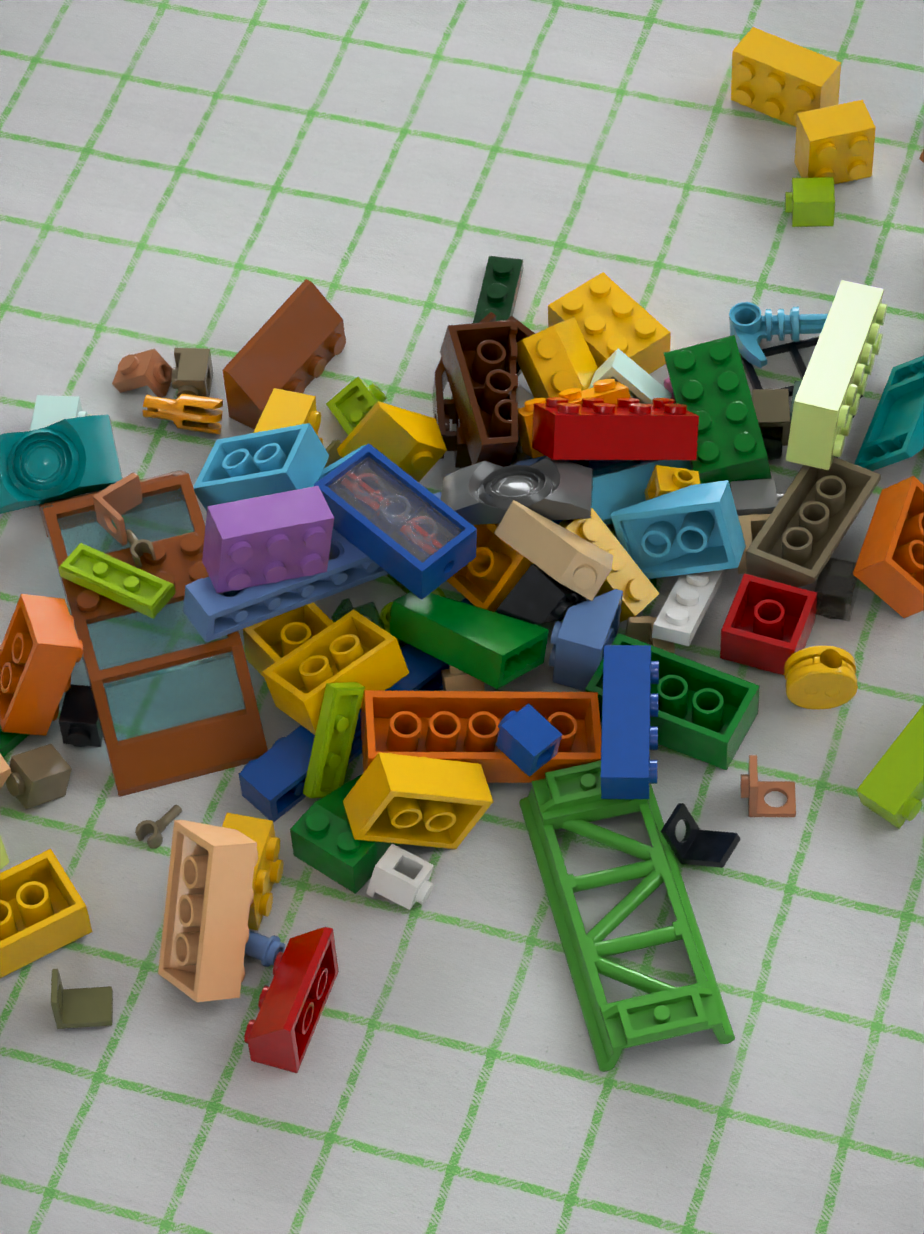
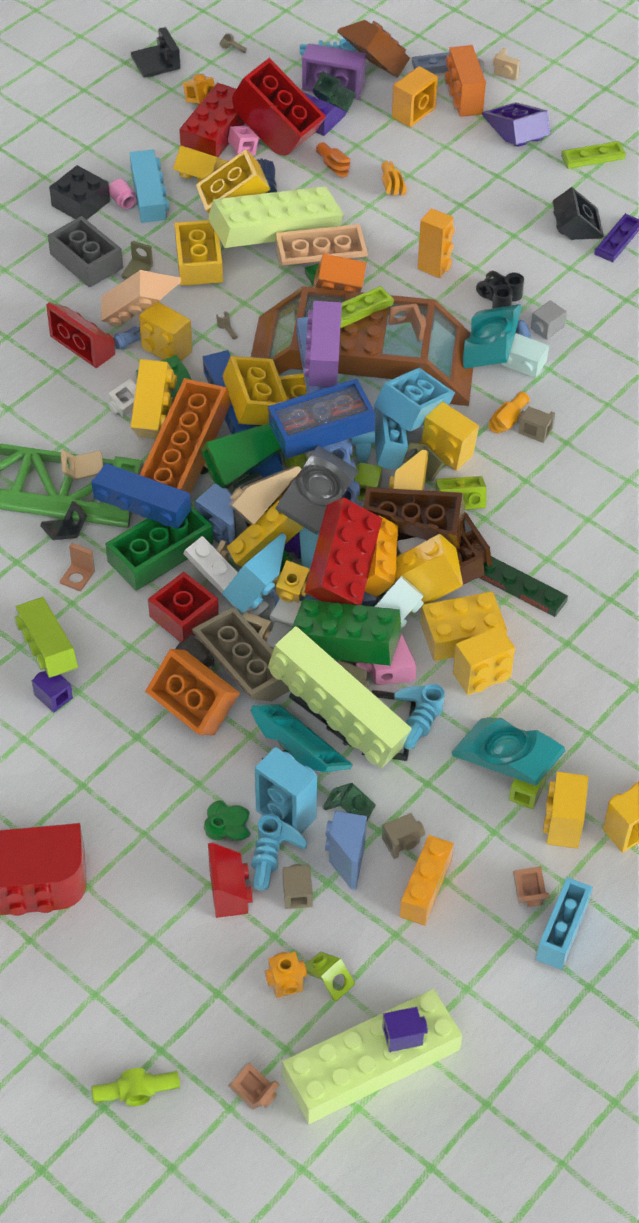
camera: 110 degrees right, 0 degrees up
(38, 776) = (281, 282): dark tan brick -> none
(88, 1086) = (85, 251): none -> dark grey brick
(139, 547) = (372, 322): dark tan hand -> none
(143, 370) = (553, 401): nougat bracket -> none
(284, 353) = (522, 460): dark orange slope -> none
(333, 738) = (222, 376): lime tile -> none
(528, 739) = (154, 445): blue brick -> none
(586, 845) = (81, 465): none -> tan bracket
(664, 282) = (483, 660): none -> yellow brick
(782, 224) = (509, 750): none -> teal slope
(820, 677) = (129, 614): yellow head -> none

